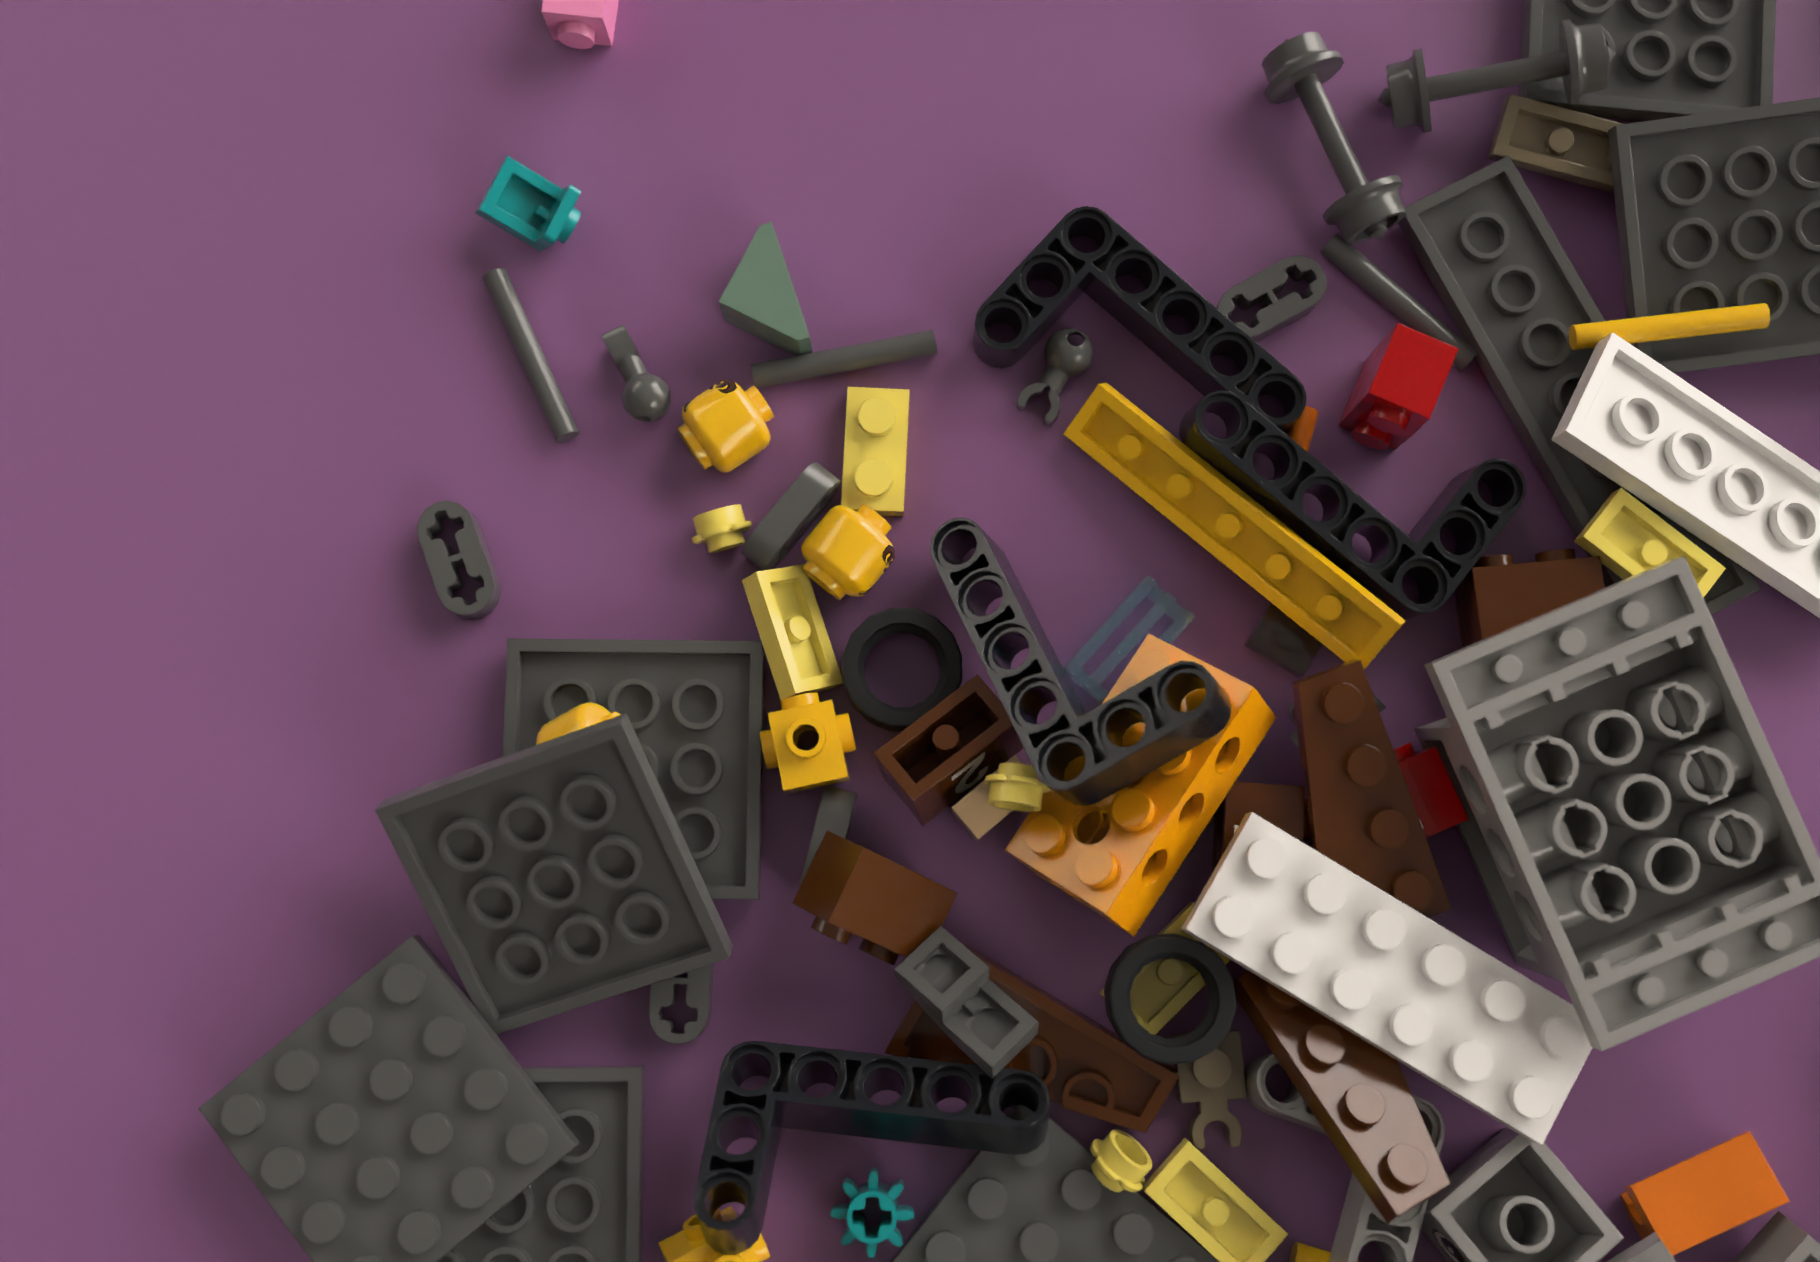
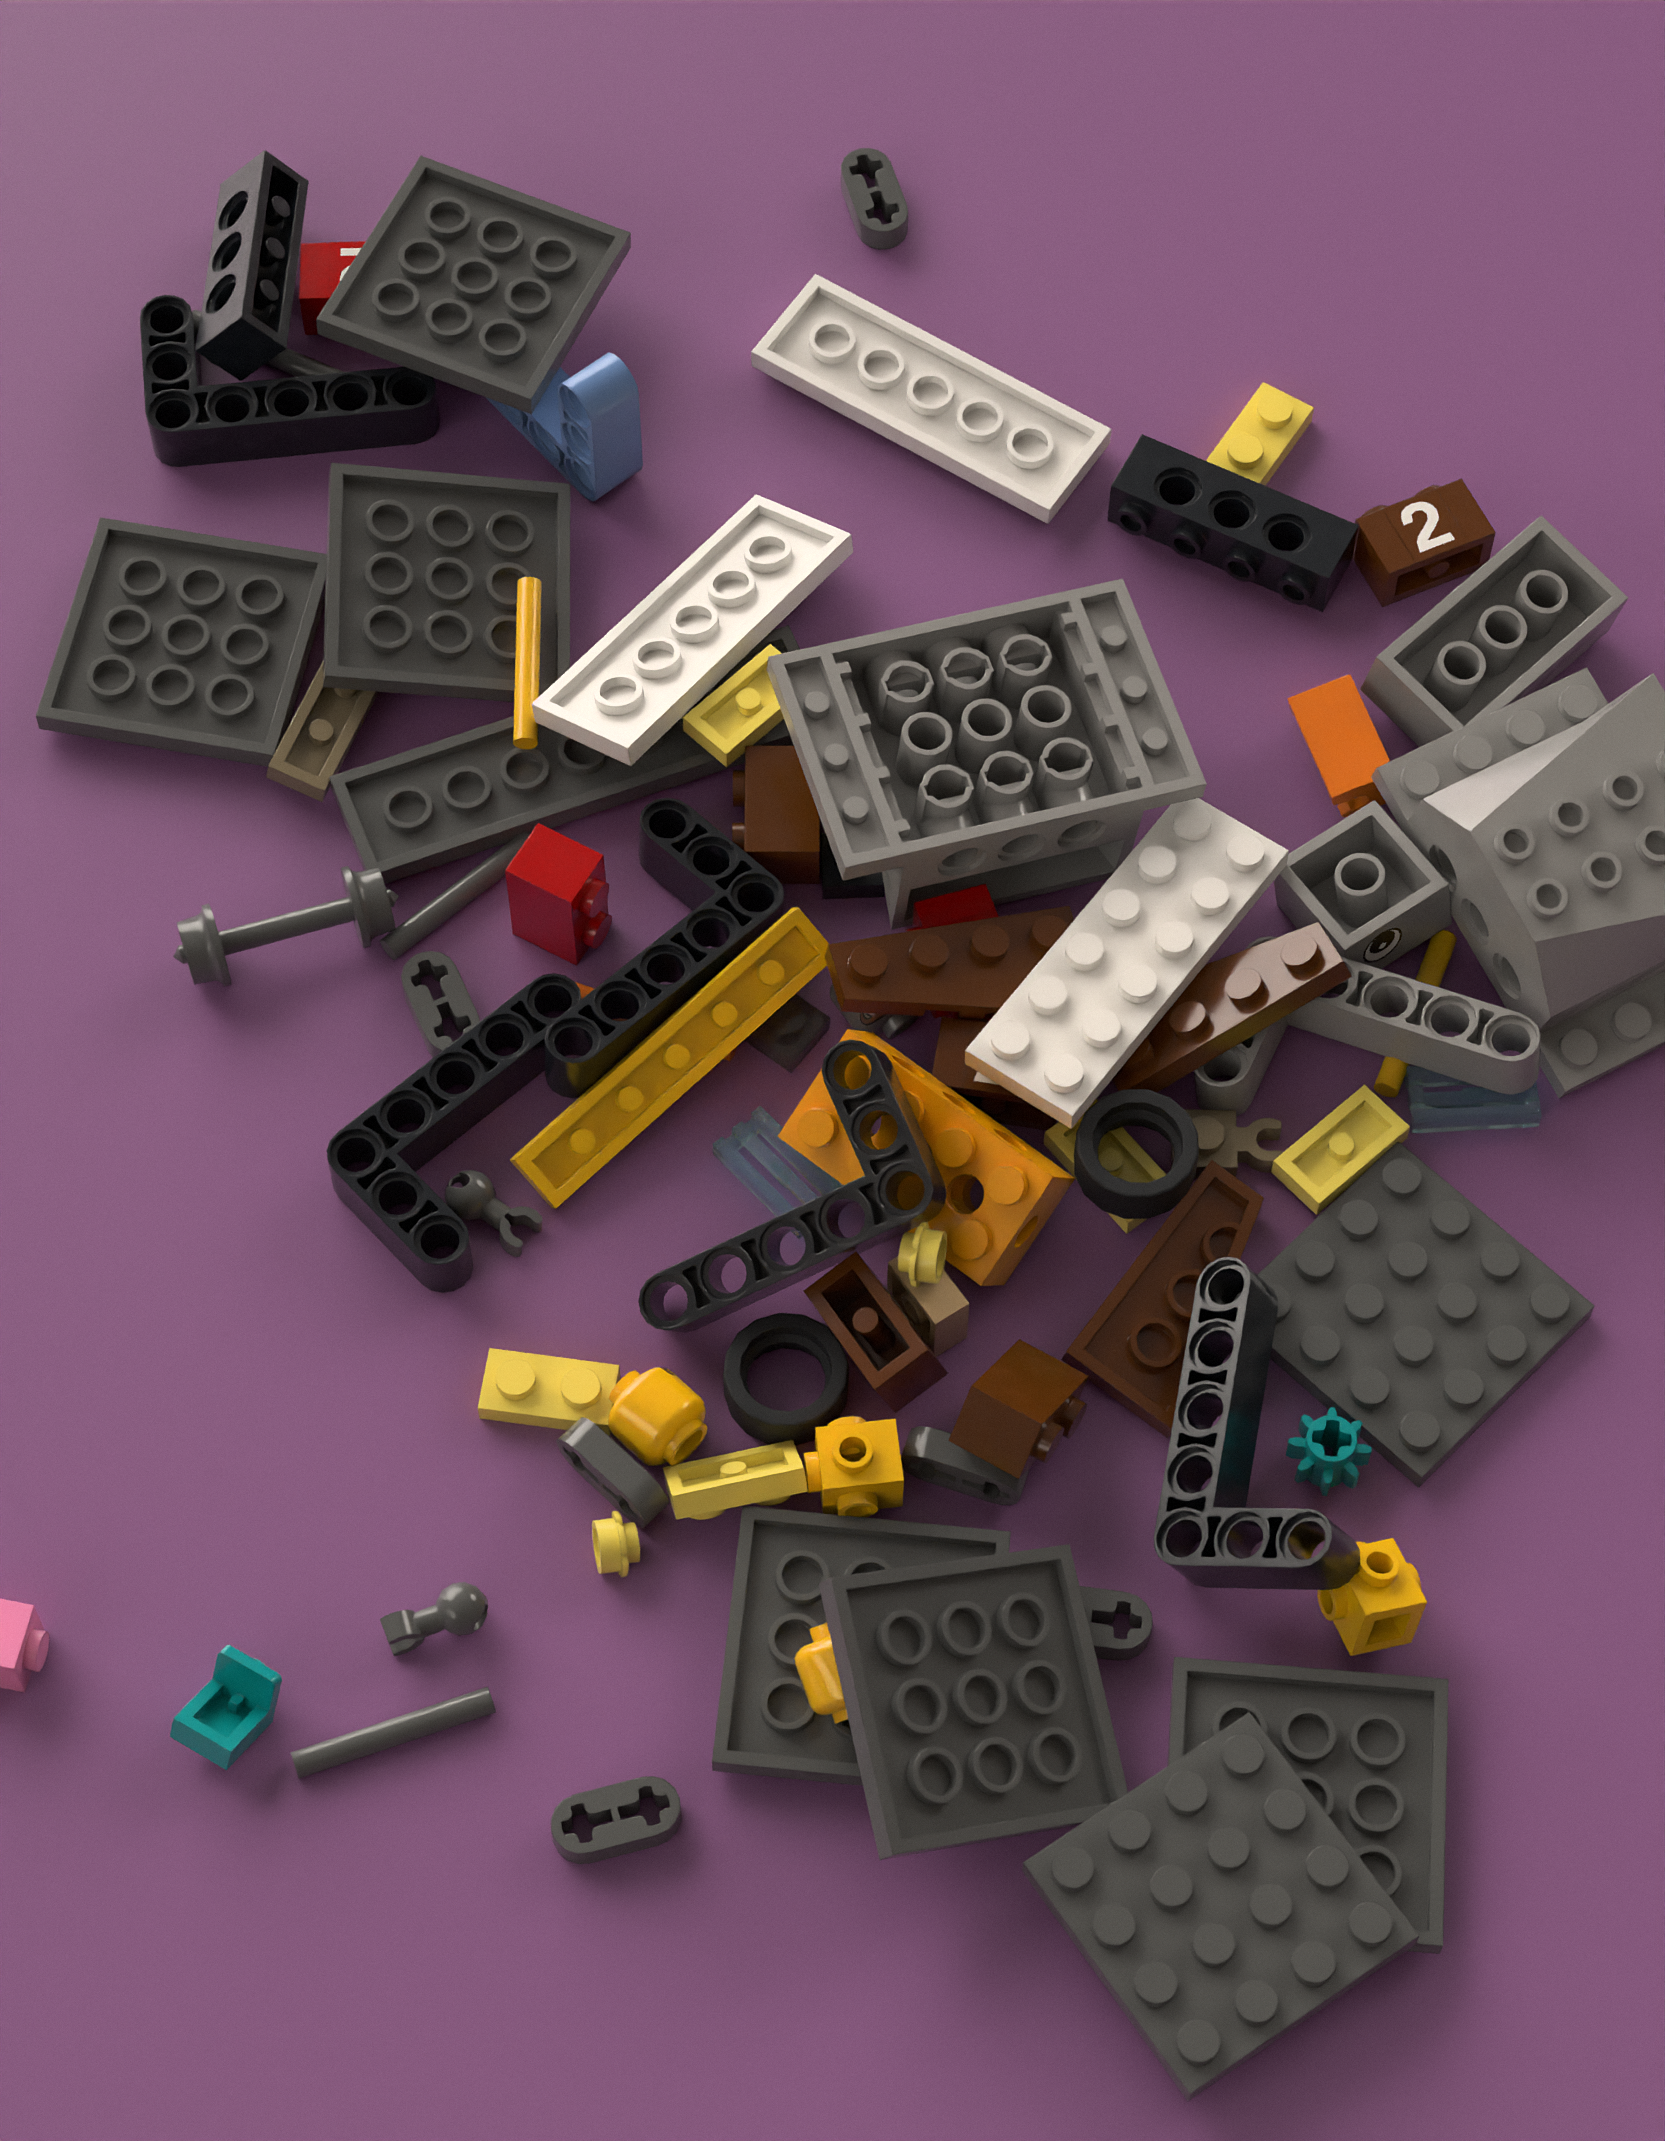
camera: 85 degrees left, 20 degrees down
(726, 425) = (505, 1529): yellow head -> none
(763, 296) = (369, 1473): sand green slope -> none
(844, 359) = (444, 1415): dark grey bar -> none
(964, 1003) = (1136, 1329): dark grey slope -> none
(1120, 1162) = (1291, 1224): light yellow plate -> none
(1580, 63) = (253, 698): dark grey piece -> none

